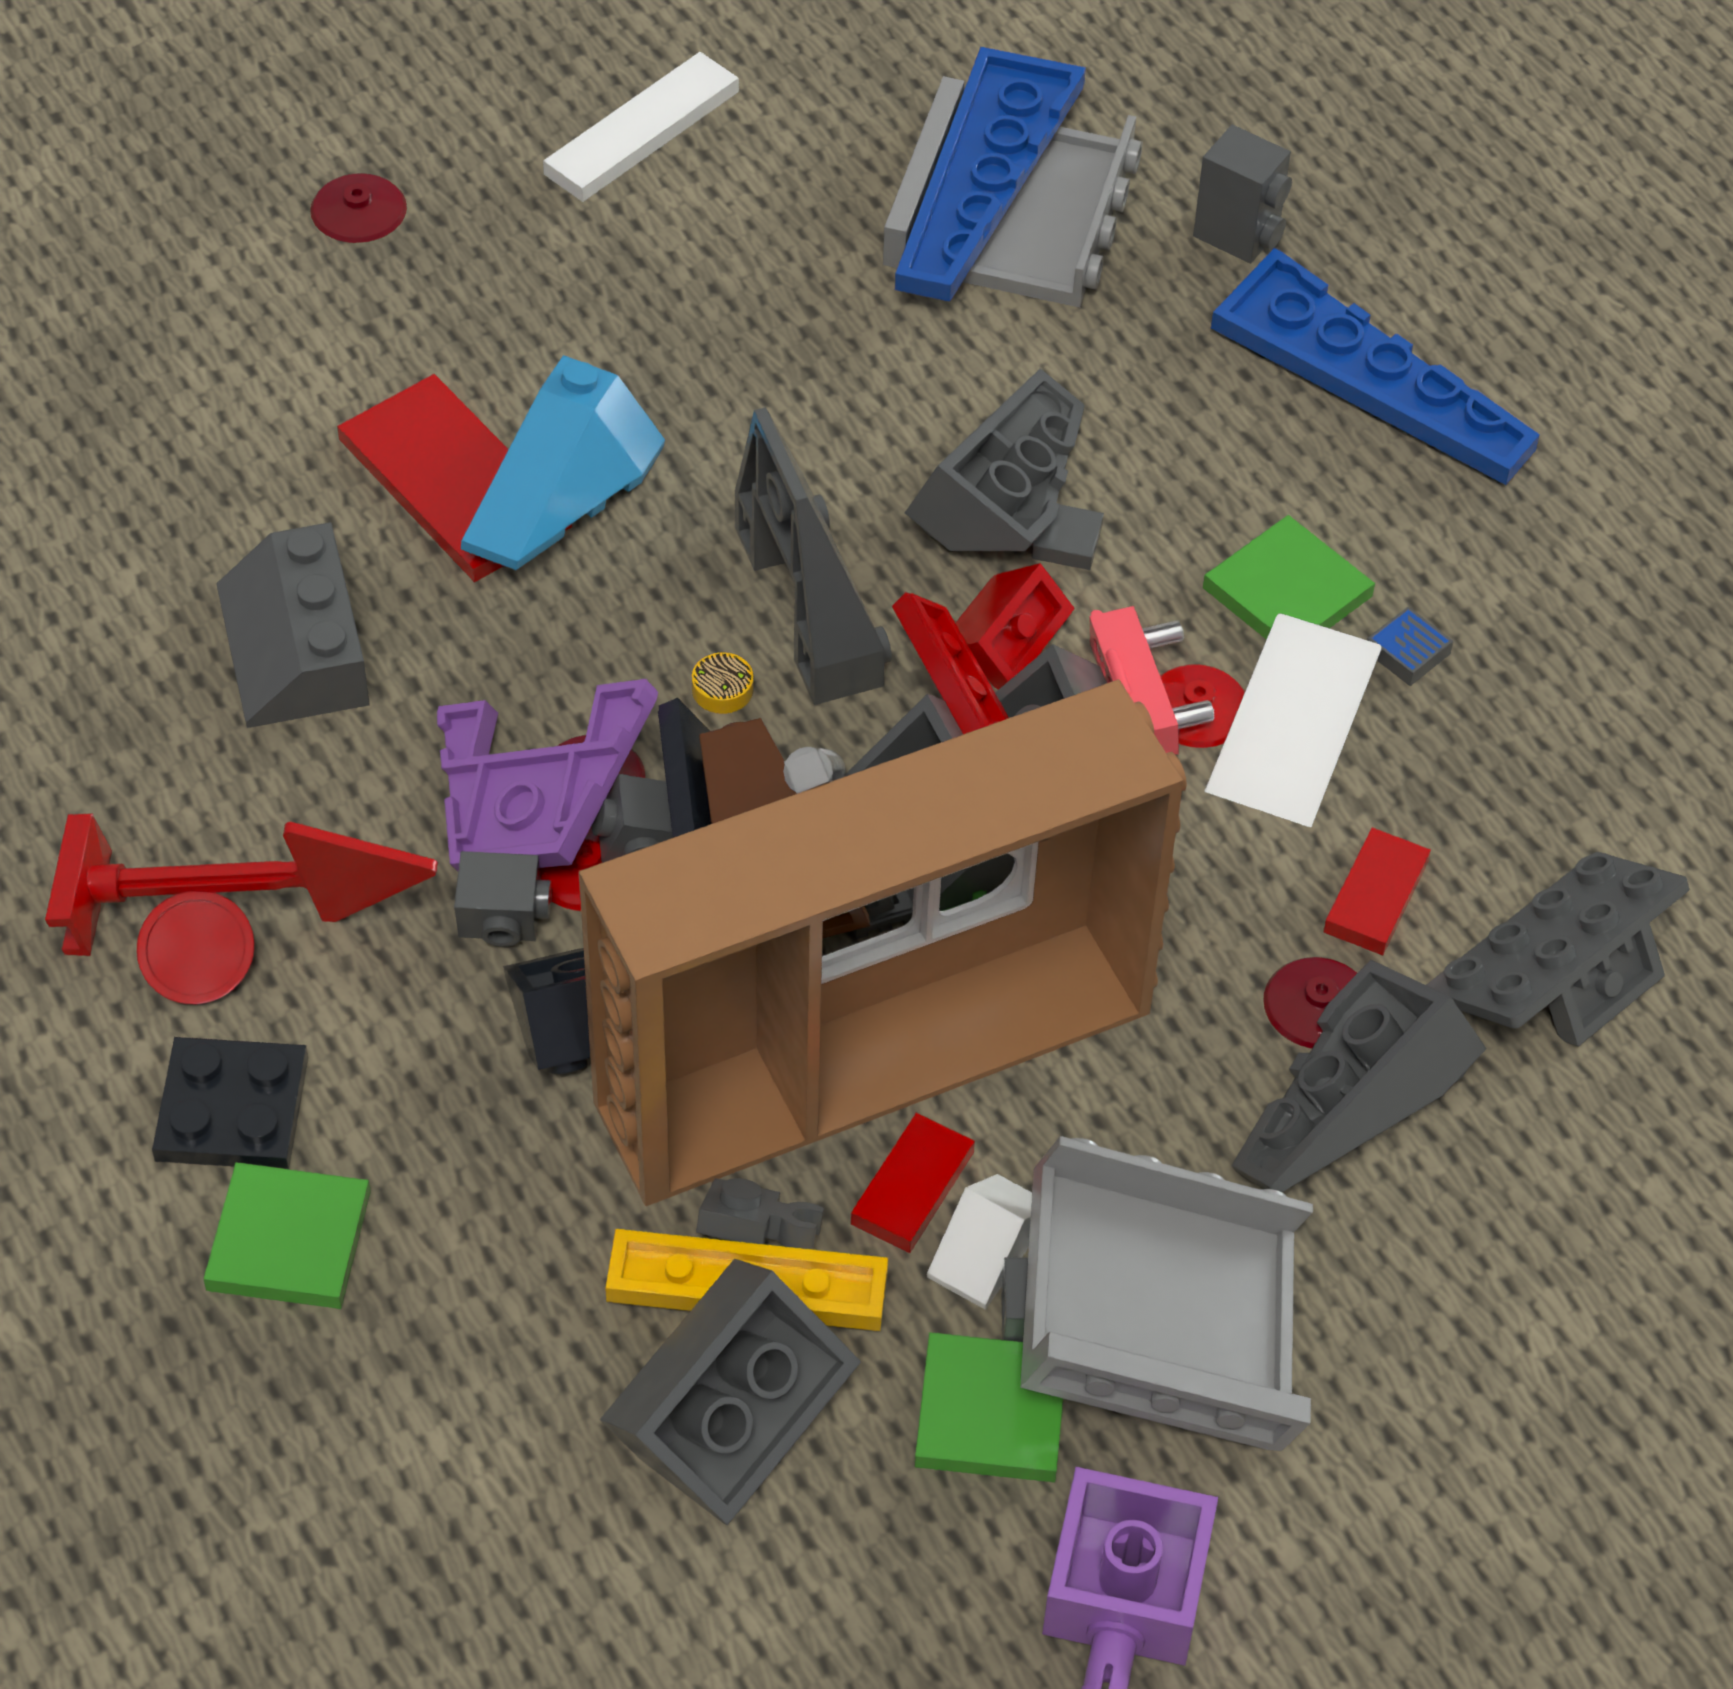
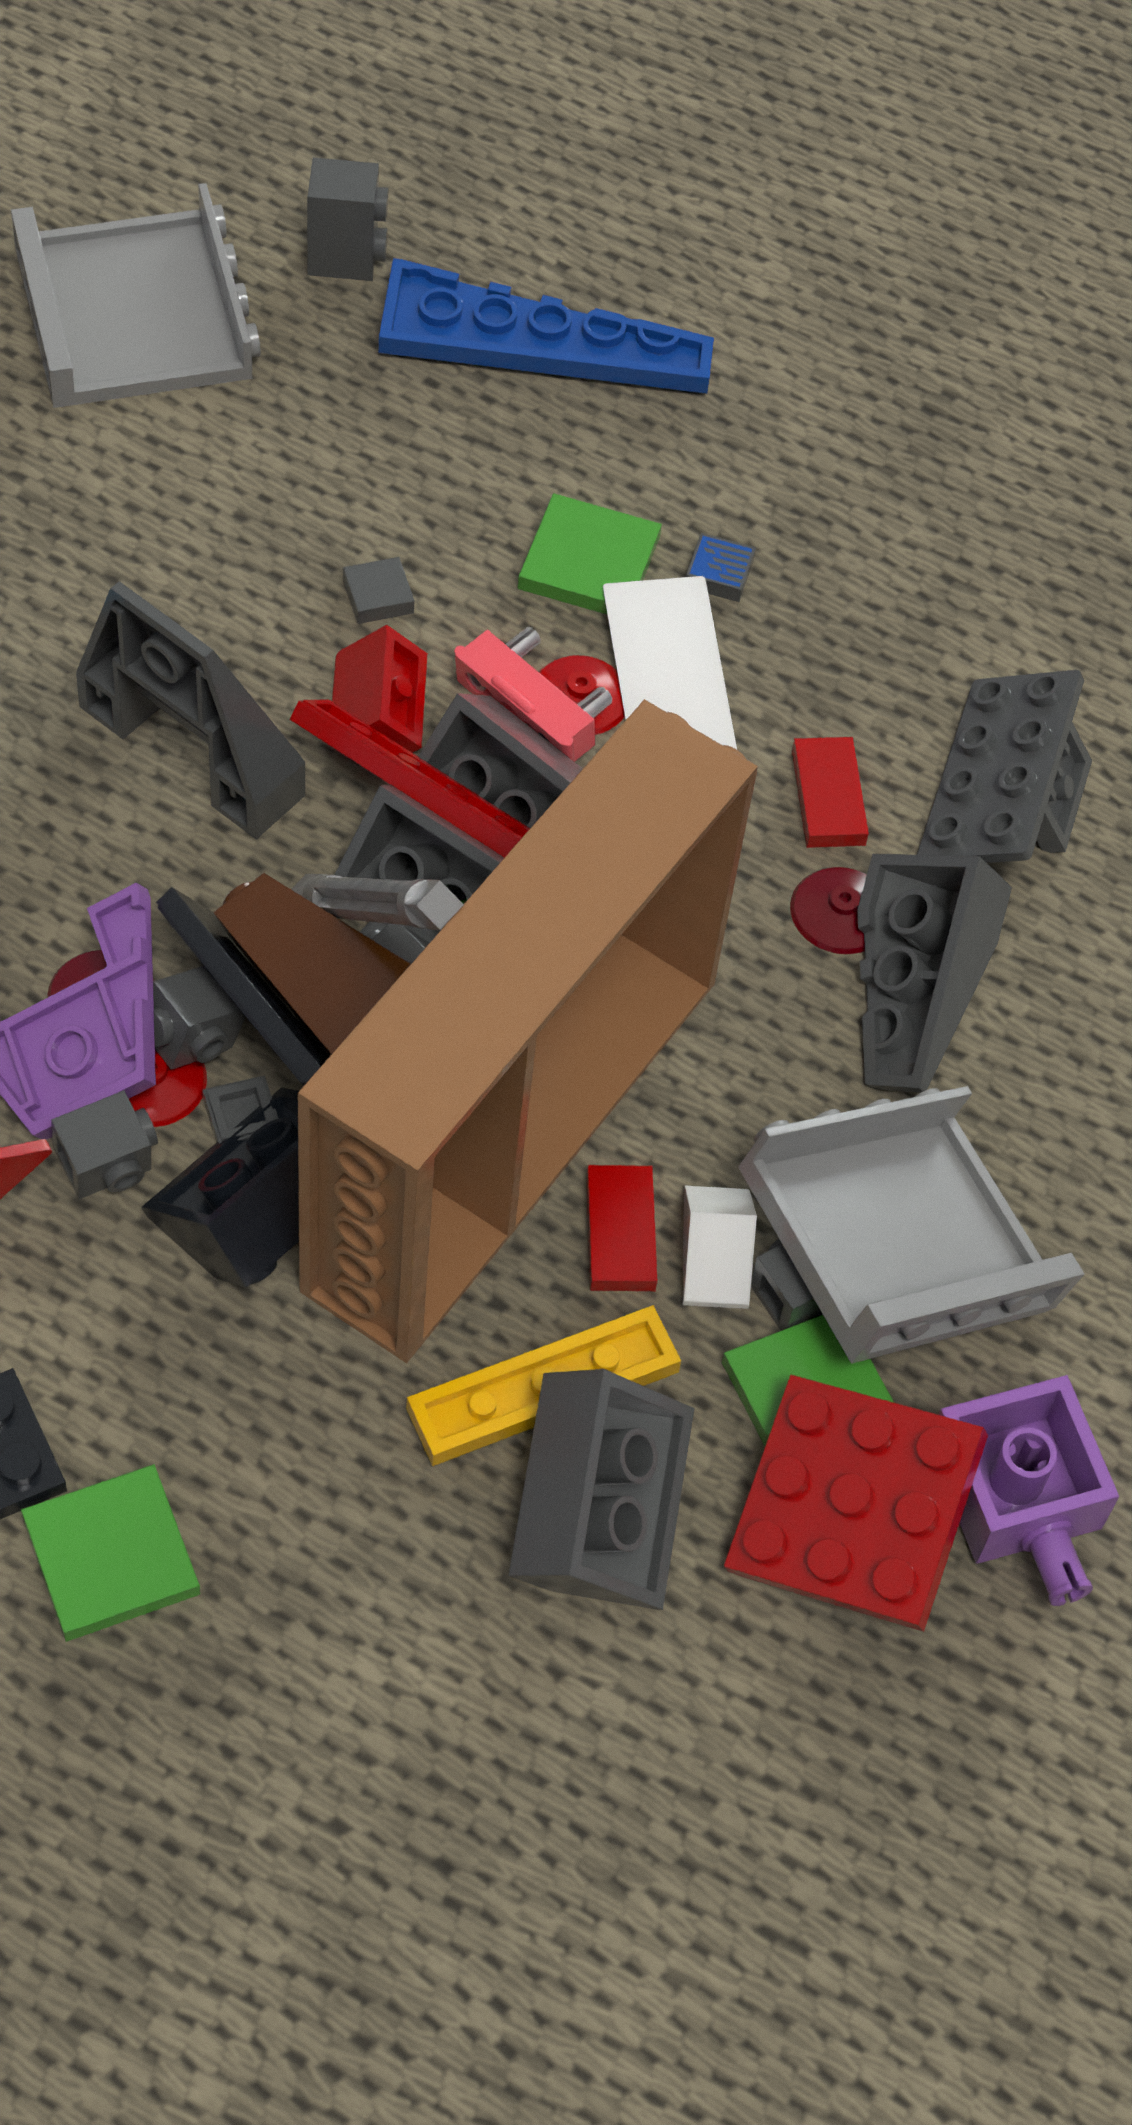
camera: 35 degrees left, 5 degrees up
(722, 683) = (165, 855): tile -> none
(750, 1214) = (510, 1327): dark grey plate -> none
(950, 1513) = (857, 1501): none -> red plate
(991, 148) = (93, 258): blue wing -> none
(1006, 475) = (294, 560): dark grey wedge -> none

